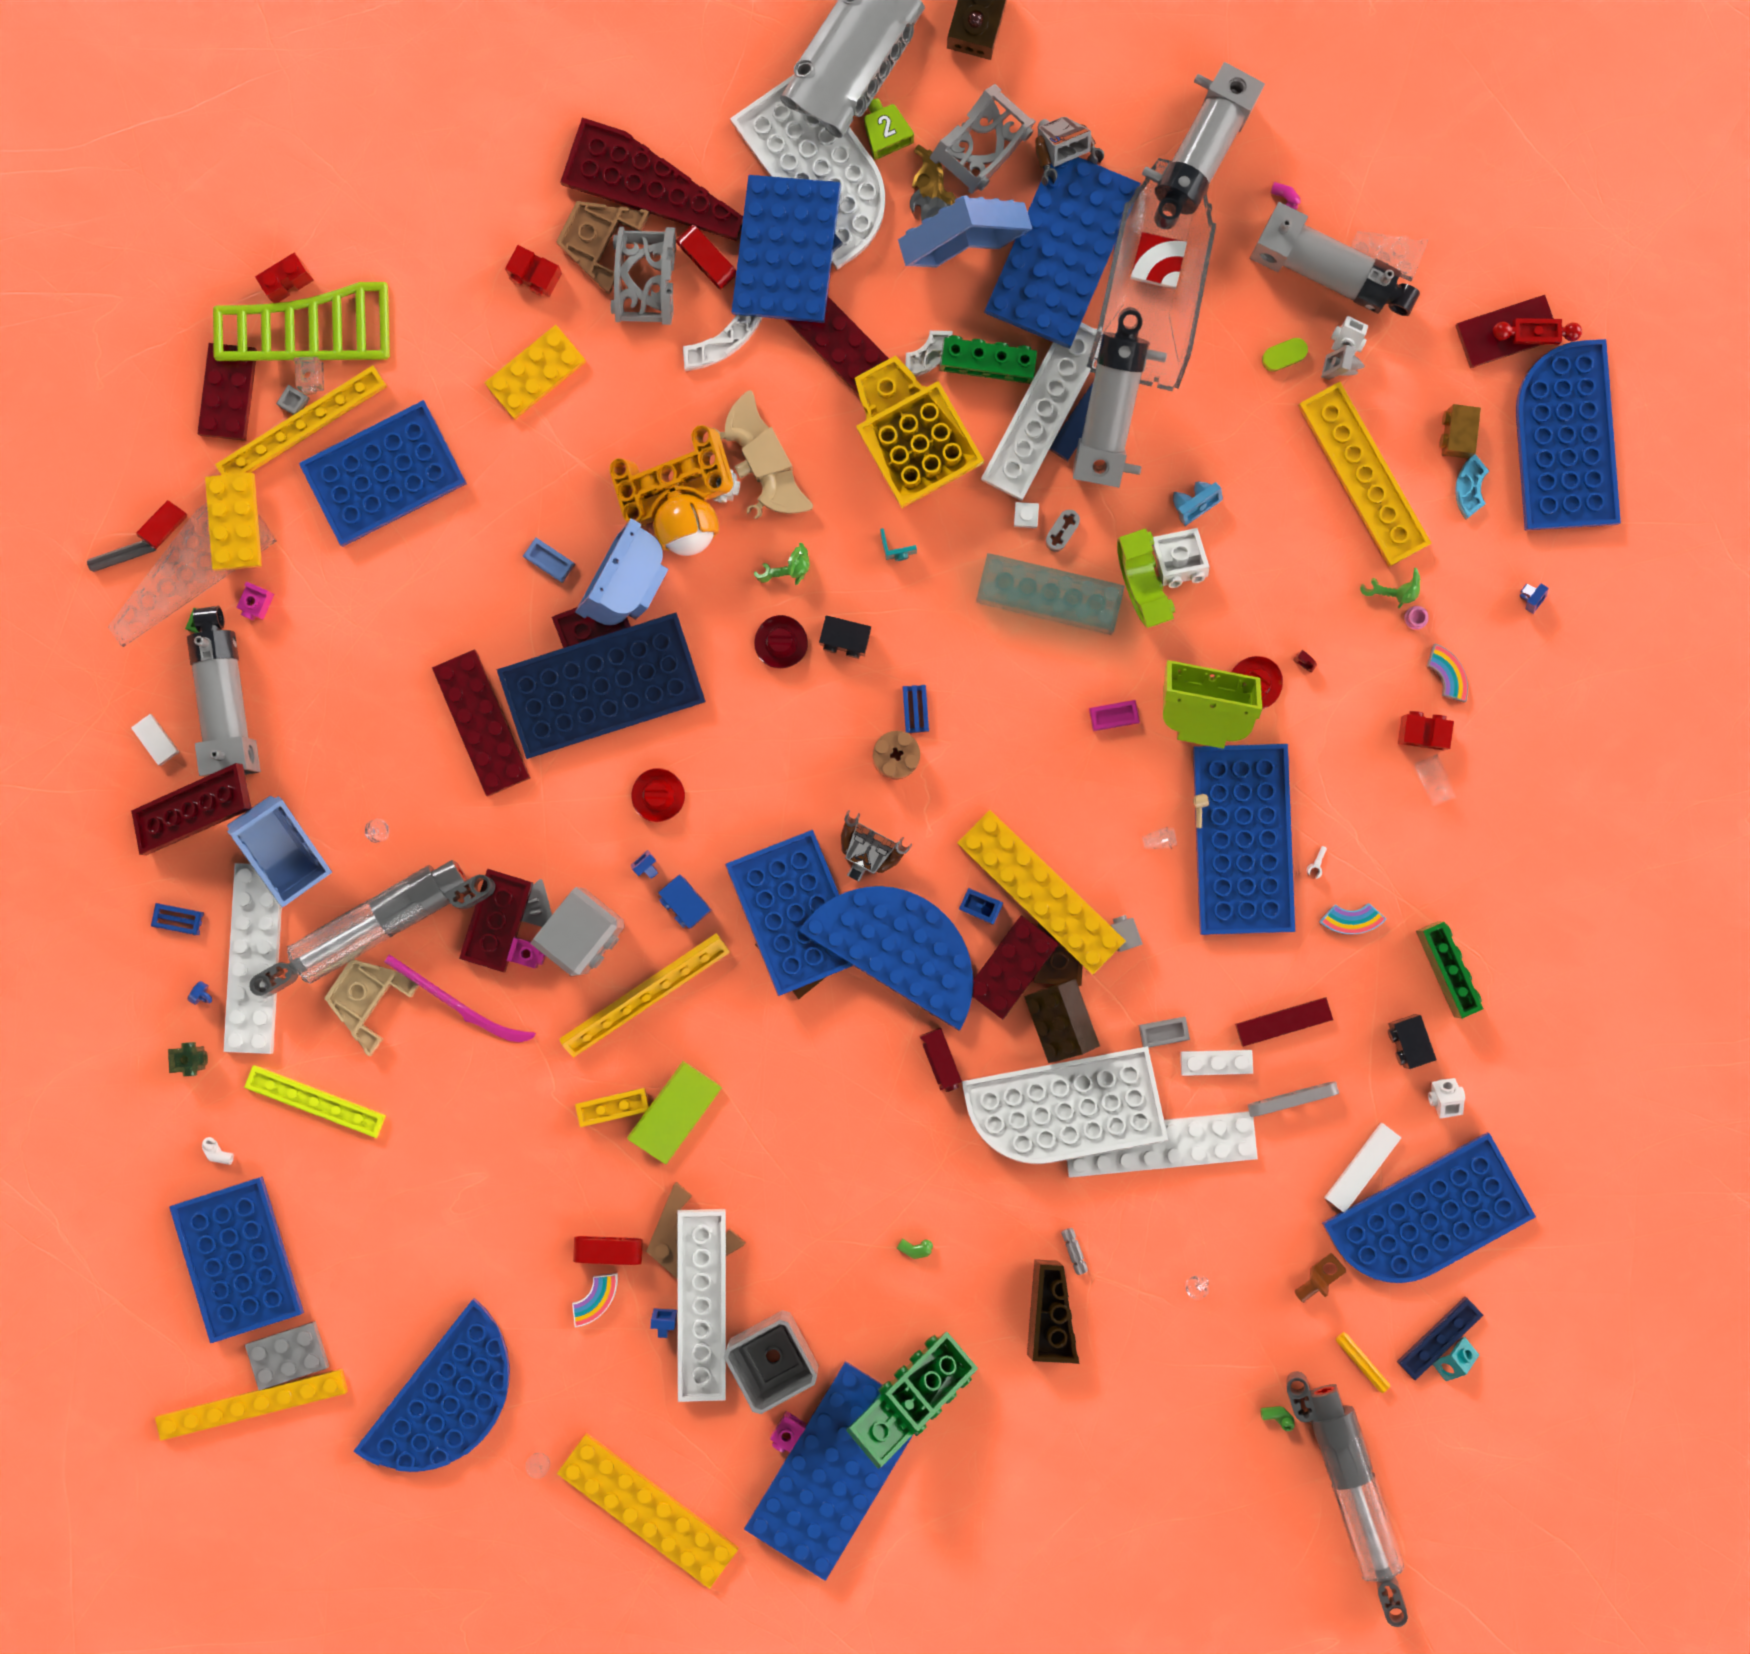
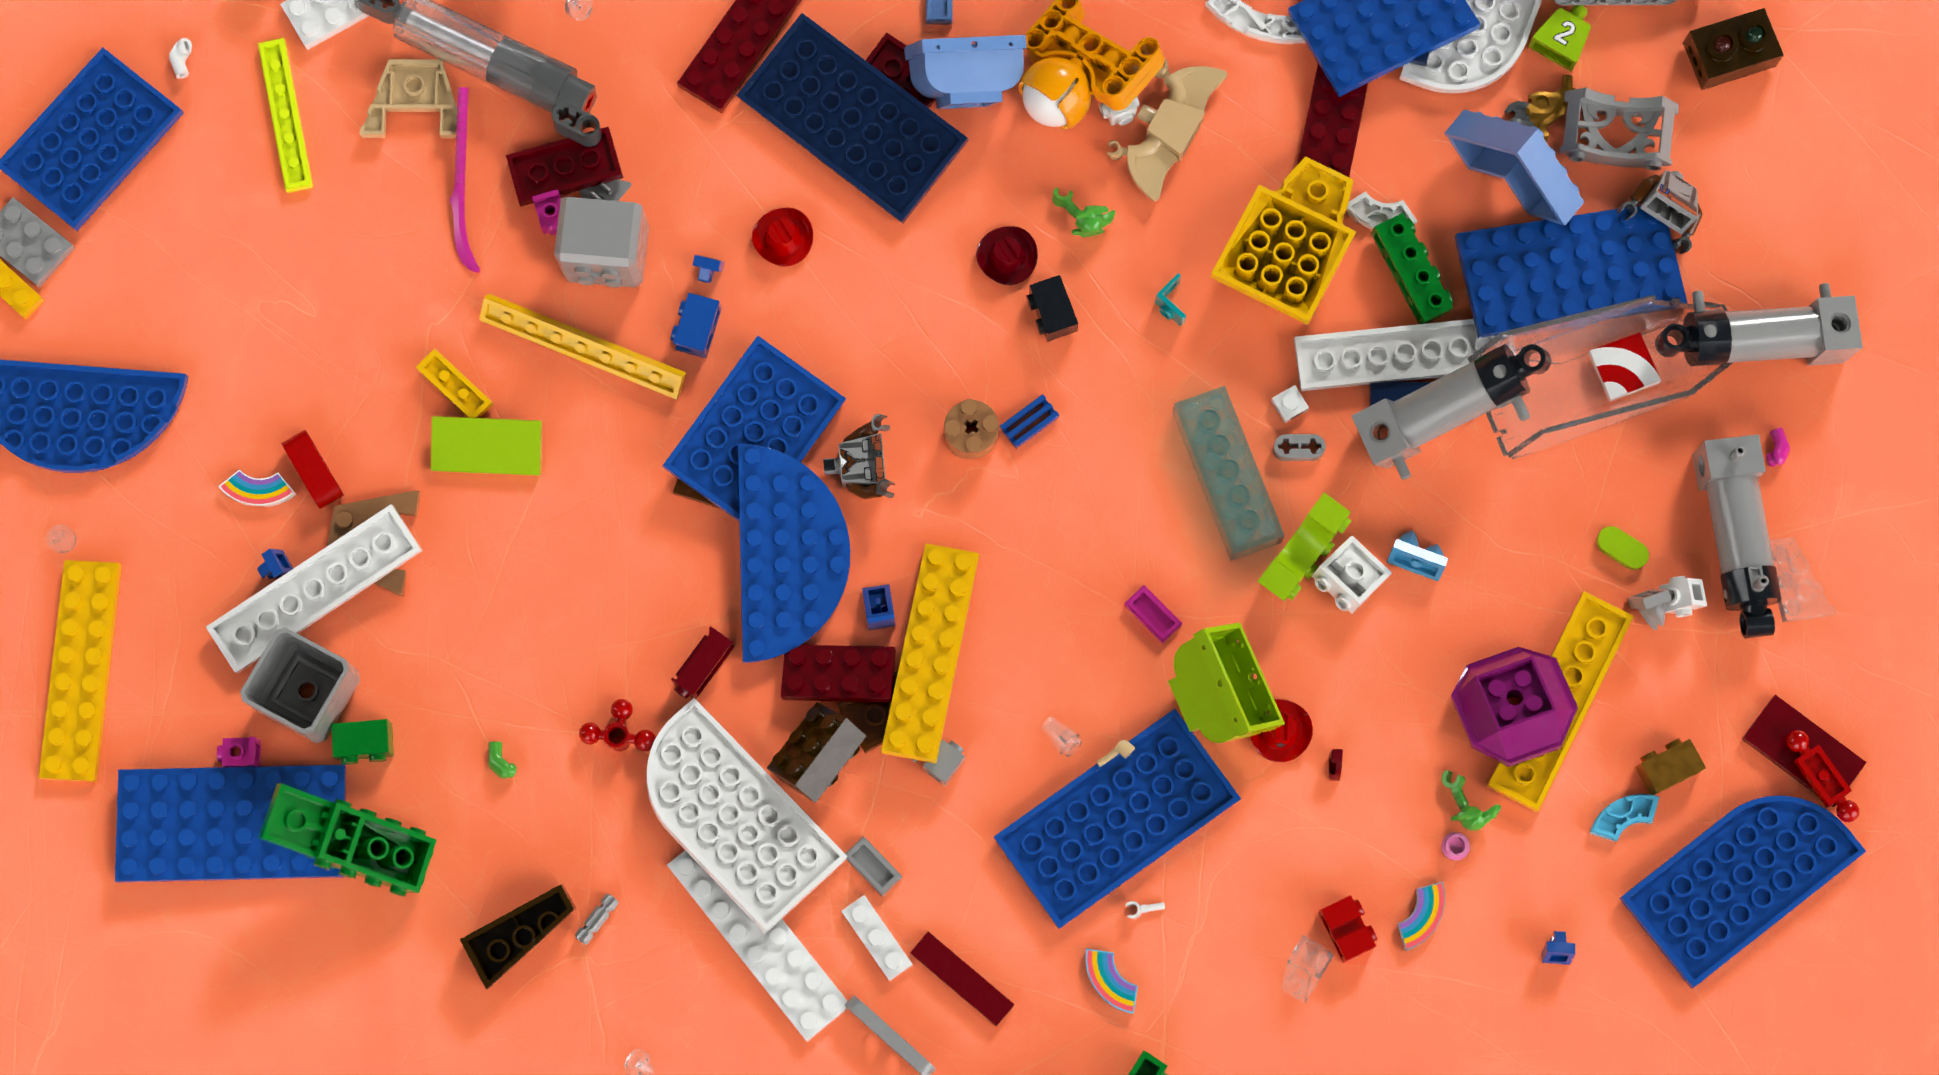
camera: 55 degrees right, 10 degrees down
(836, 1339) = (362, 741): none -> green brick
(937, 1139) = (621, 710): none -> red piece
(1344, 532) = (1508, 730): none -> magenta piece

